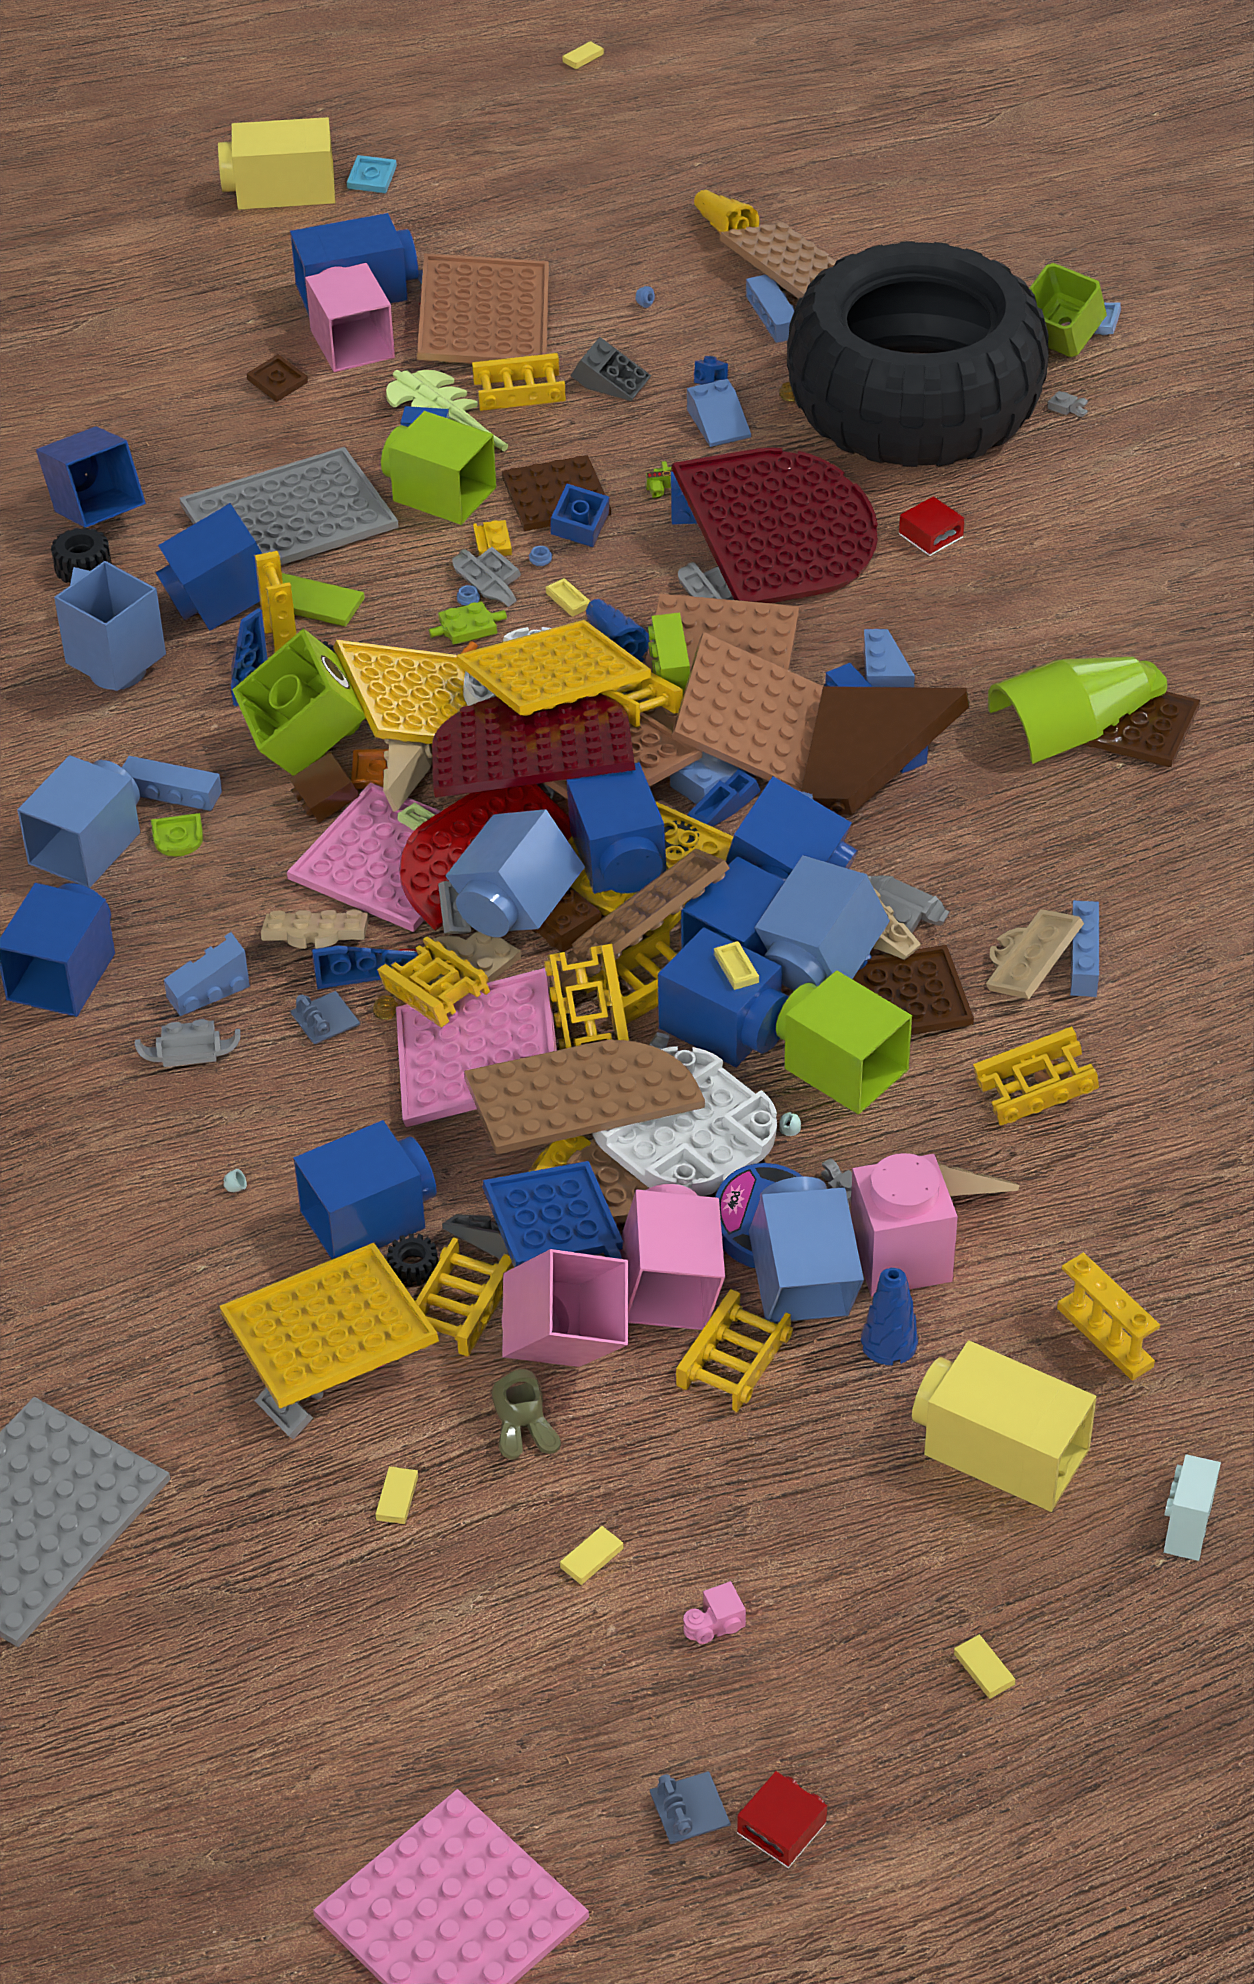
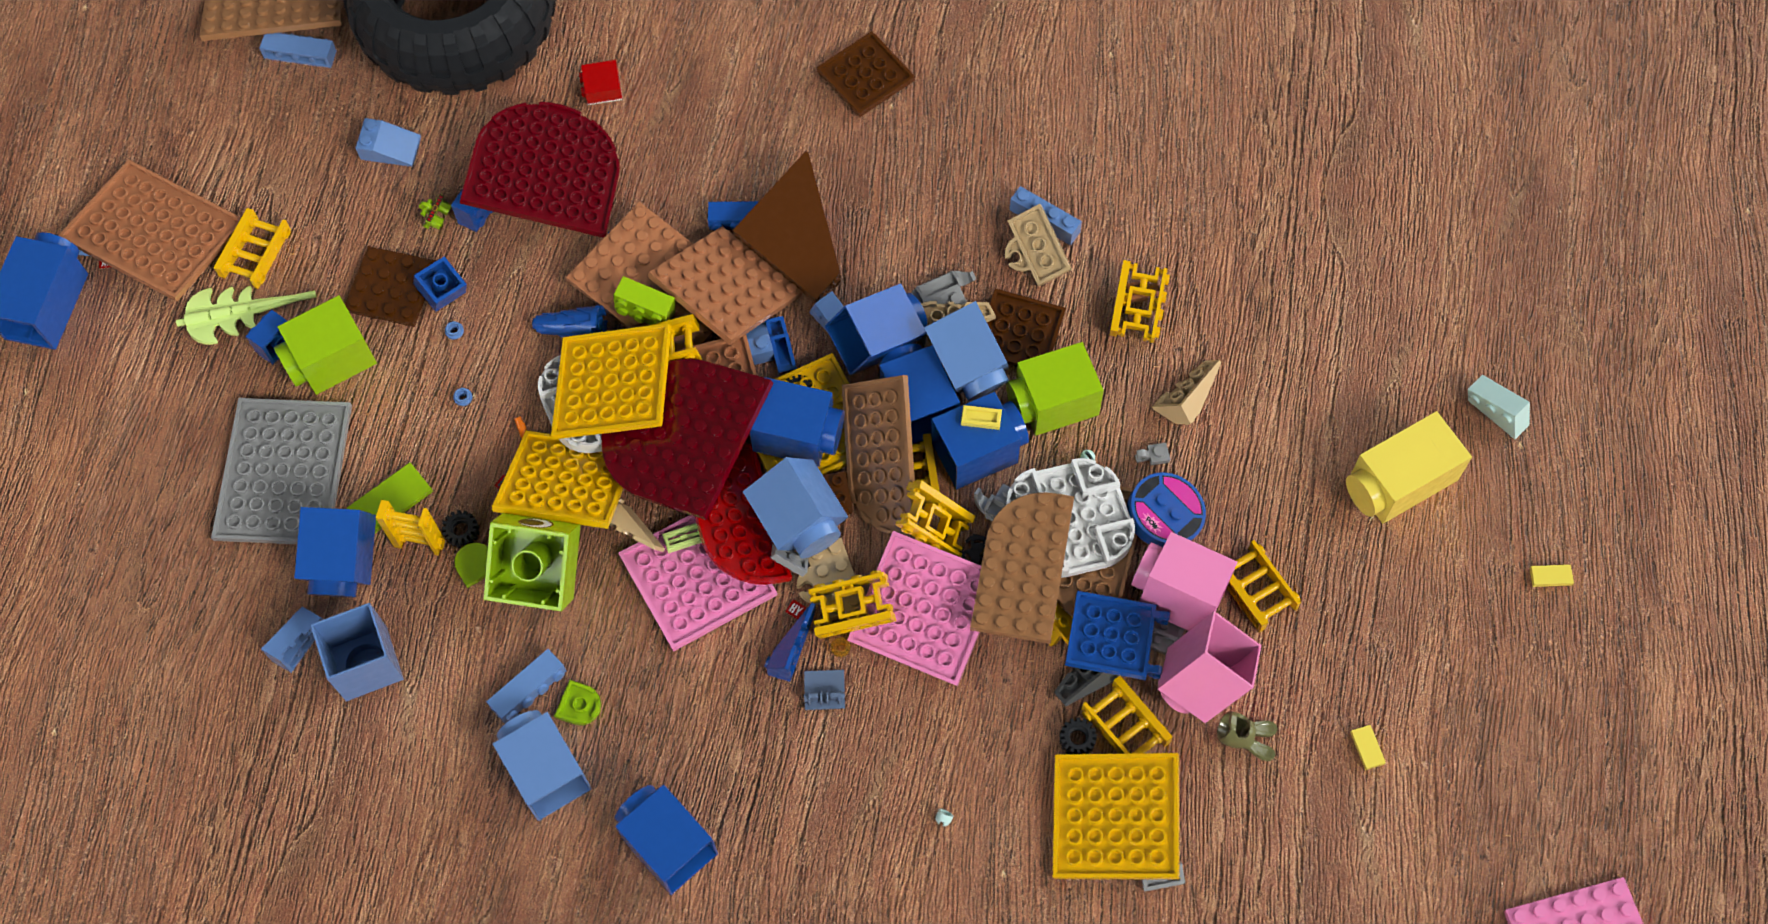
camera: 60 degrees left, 20 degrees up
(79, 549) = (219, 627): black tyre -> none
(110, 480) = (159, 590): blue container -> none
(188, 1044) = (799, 789): light grey plate -> none
(209, 978) = (748, 749): medium blue wedge -> none
(249, 649) = (445, 576): blue wedge -> none
(277, 378) = (116, 405): reddish brown plate -> none
(317, 928) = (741, 657): tan plate -> none
(323, 788) = (607, 586): reddish brown brick -> none
(350, 317) = (98, 321): bright pink container -> none
(364, 1189) = (1020, 739): blue container -> none
(368, 767) = (602, 544): orange plate -> none
(397, 1495) = (1263, 839): light yellow tile -> none
(467, 623) = (490, 411): lime plate -> none
(488, 573) = (449, 372): light grey plate -> none
(493, 535) = (411, 351): yellow plate -> none
(567, 597) = (508, 334): light yellow tile -> none
(610, 372) = (287, 185): dark grey slope -> none
(645, 296) = (219, 119): medium blue plate -> none
(689, 1806) = (1575, 785): sand blue hinge -> none
(706, 585) = (564, 245): light grey plate -> none
(710, 370) = (343, 124): blue brick -> none
(722, 1615) = (1451, 695): bright pink brick -> none
(725, 212) = (172, 21): yellow cone -> none
(782, 1818) = (1610, 738): red piece -> none
(785, 392) = (392, 85): clear yellow plate -> none
(805, 1250) = (1227, 505): medium blue container -> none
(884, 661) = (718, 182): medium blue wedge -> none
(890, 1321) = (1292, 489): blue cone -> none
(904, 1220) = (1232, 439): bright pink container -> none
(1075, 699) = (834, 94): lime windscreen -> none
(1097, 1326) = (1351, 370): yellow fence -> none

